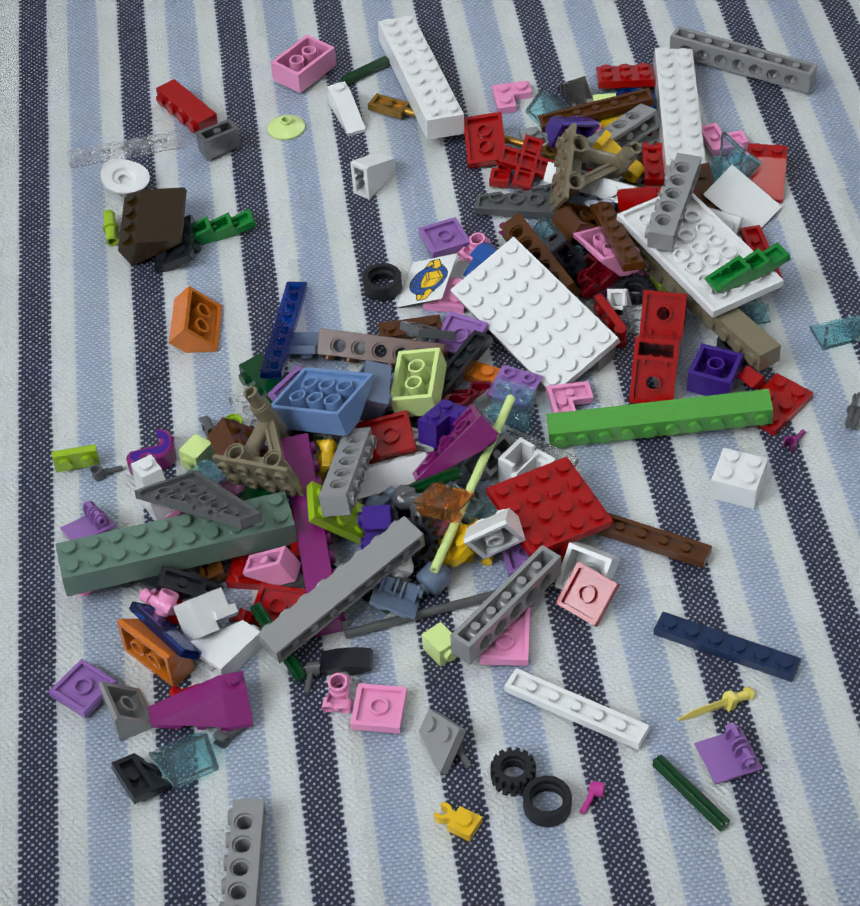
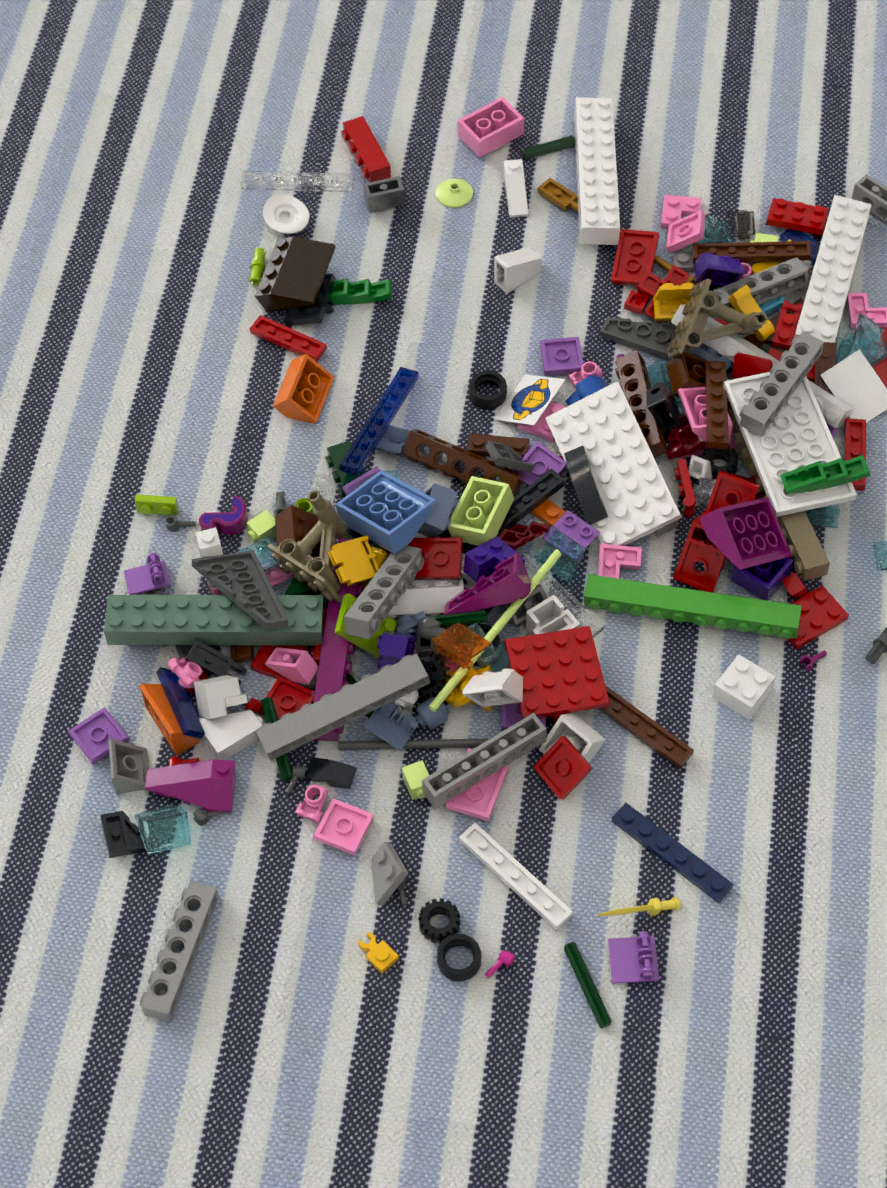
camera: 15 degrees right, 10 degrees up
(160, 281) = (287, 338): none -> red plate
(306, 452) = (354, 561): none -> yellow plate
(514, 337) = (585, 485): none -> black slope
(525, 108) = (686, 231): none -> bright pink plate
(535, 161) = (669, 298): none -> yellow bracket
(692, 331) = (747, 533): none -> magenta slope

